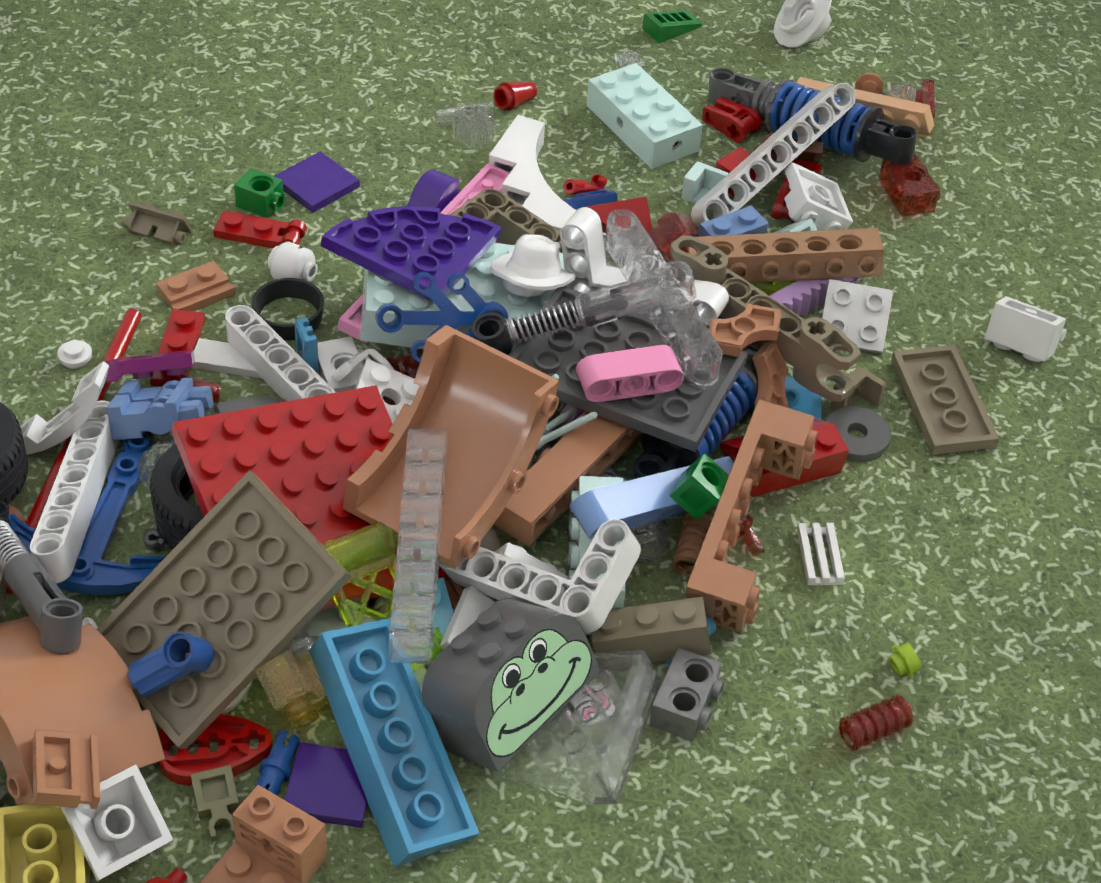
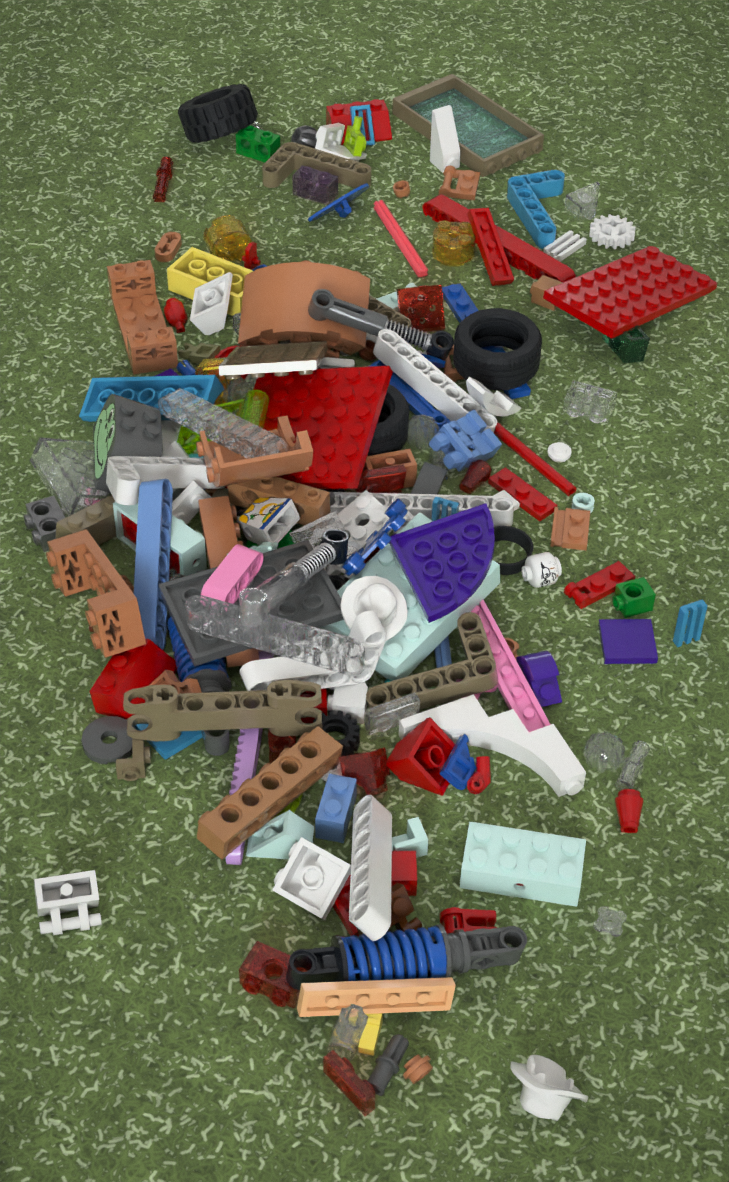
camera: 135 degrees right, 0 degrees up
(65, 769) = (241, 273): nougat plate -> none
(143, 366) = (503, 456): magenta hinge -> none
(146, 289) = (586, 499): none -> light aqua bush
(169, 224) = (651, 541): dark tan hinge -> none
(169, 663) = (266, 337): blue piece -> none
(272, 134) = (693, 622): none -> dark azure tile
(669, 24) = (644, 979): green slope -> none
(700, 486) = (126, 560): green brick -> none
(750, 326) = (207, 676): nougat tile -> none
(817, 532) = (43, 639): white tile -> none
(859, 313) = (181, 814): white plate -> none
(944, 400) = (77, 805): dark tan plate -> none

